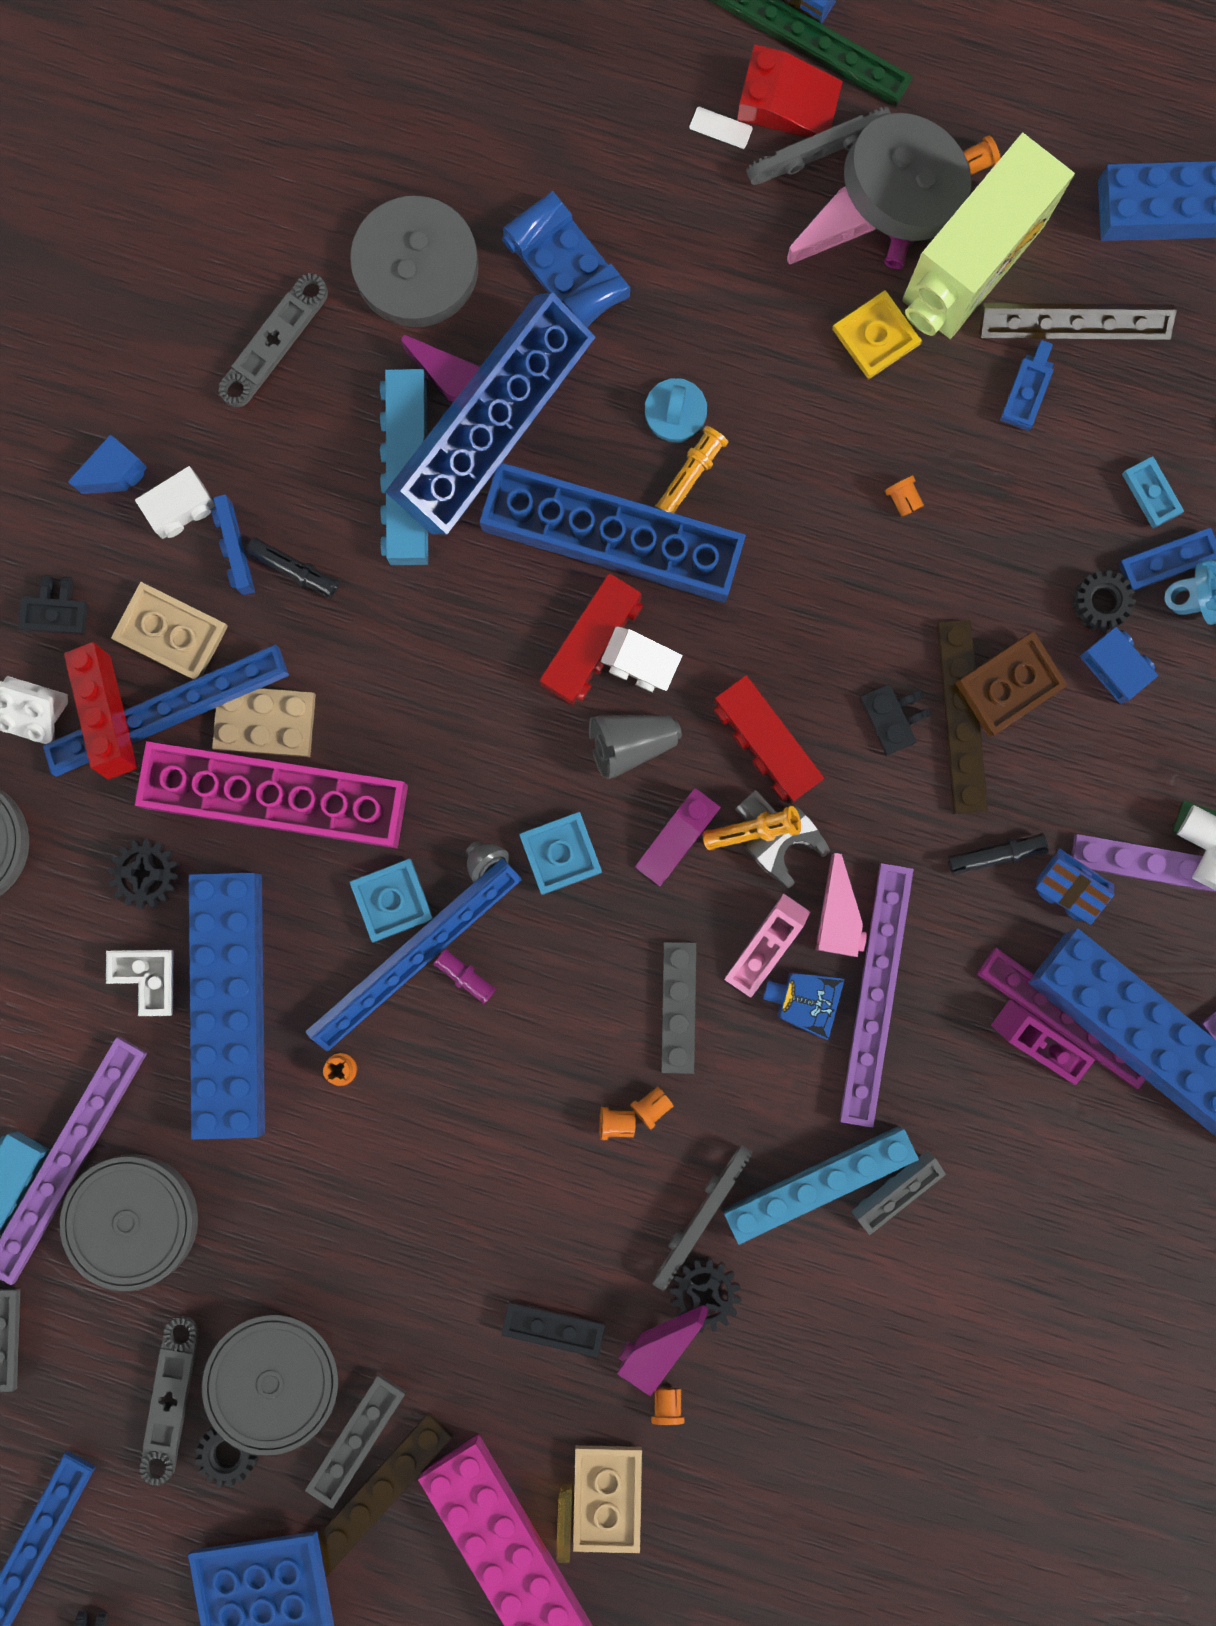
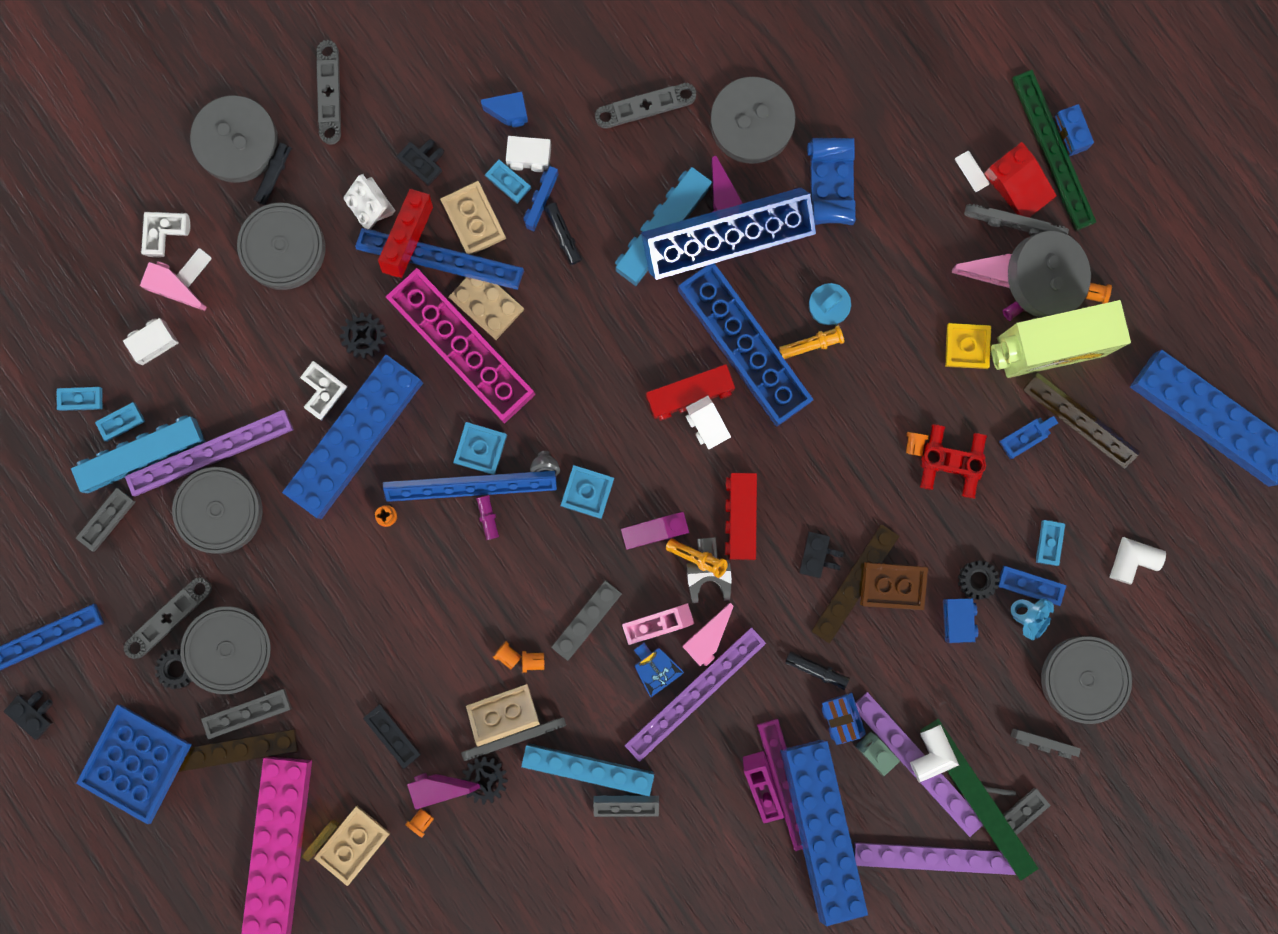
camera: 30 degrees right, 0 degrees up
(177, 555) = (508, 181): none -> dark azure plate
(630, 740) = (669, 461): dark grey cone -> none
(667, 1200) = (502, 715): none -> tan plate
(965, 483) = (953, 461): none -> red piece
(1148, 897) = (877, 753): none -> sand green torso

